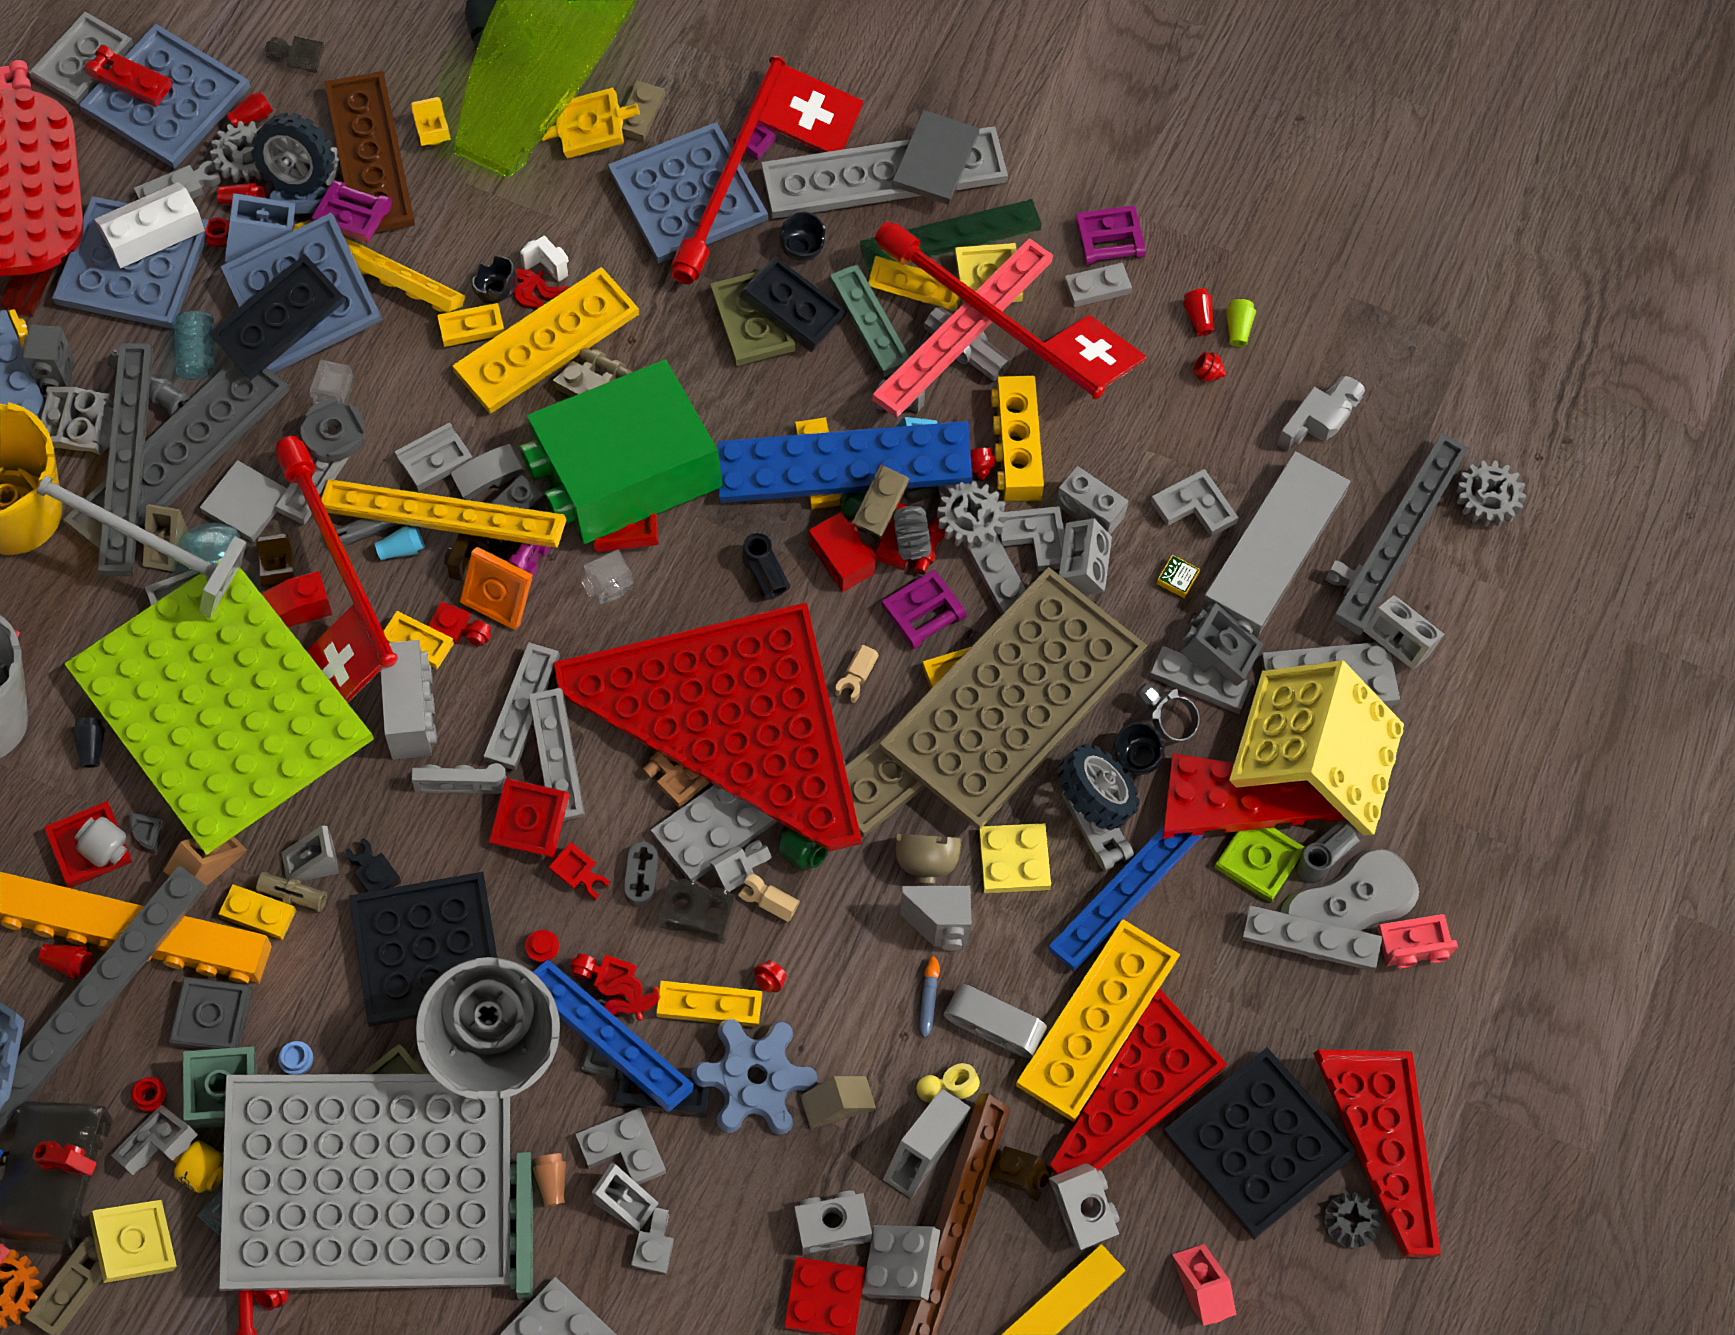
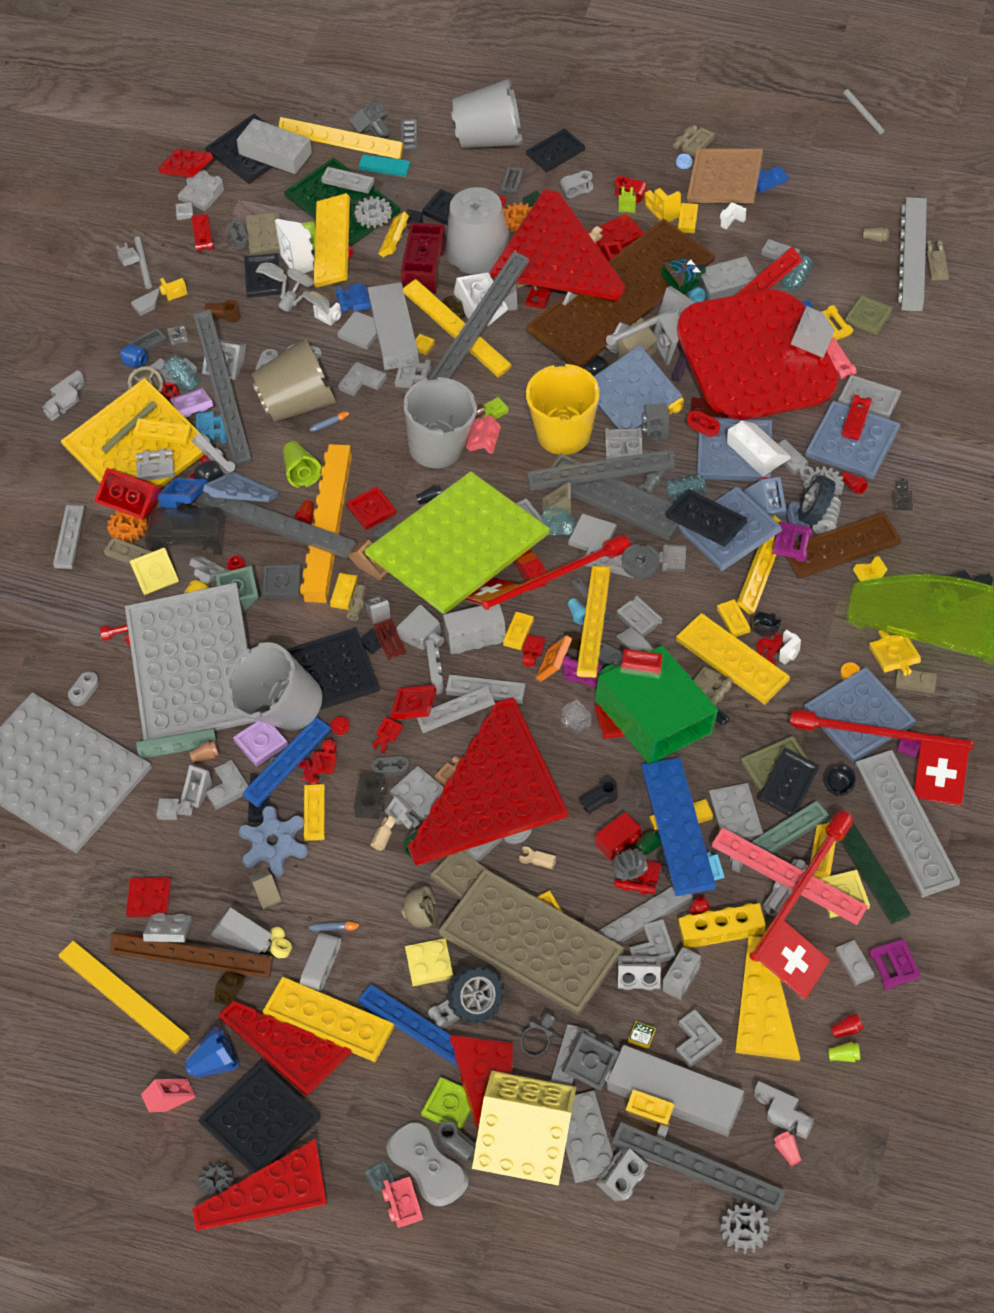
camera: 90 degrees right, 10 degrees down
(69, 1159) = (181, 521): red plate -> none
(72, 290) = (703, 424): none -> red plate
(101, 842) = (367, 508): light grey head -> none
(218, 575) = (524, 517): light grey tile -> none
(225, 193) = (792, 491): red cone -> none
(275, 559) = (554, 555): dark brown bracket -> none
(295, 1058) = (262, 624): light blue plate -> none
(377, 790) = (420, 627): none -> light grey torso
(386, 849) = (395, 653): none -> clear red tile
(558, 444) = (641, 661): none -> red tile
(558, 1089) = (260, 742): none -> lavender plate
(604, 191) = (848, 670): none -> light orange tile
(770, 976) = (334, 839): red plate -> none
(817, 1237) = (188, 881): light grey brick -> none
(825, 388) = (736, 811): none -> light grey plate
(881, 501) = (651, 842): dark tan brick -> none
(918, 600) = (593, 884): magenta plate -> none
(936, 157) = (922, 847): dark grey tile -> none
(939, 913) = (377, 919): light grey slope -> none
(963, 523) = (652, 901): light grey gear -> none
(1070, 1190) = (212, 1008): light grey brick -> none
(1139, 748) = (510, 1021): black hair -> none
(1149, 1205) = (211, 1055): none -> blue cone
(1162, 413) = (764, 1015): none -> yellow wing
(1209, 367) = (804, 1037): red plate -> none
(1309, 576) = (650, 1108): none -> yellow panel
(1312, 938) = (394, 1136): light grey plate -> none
(1369, 980) = (377, 1176): none -> clear light blue tile
(1372, 420) = (788, 1148): none -> coral cone

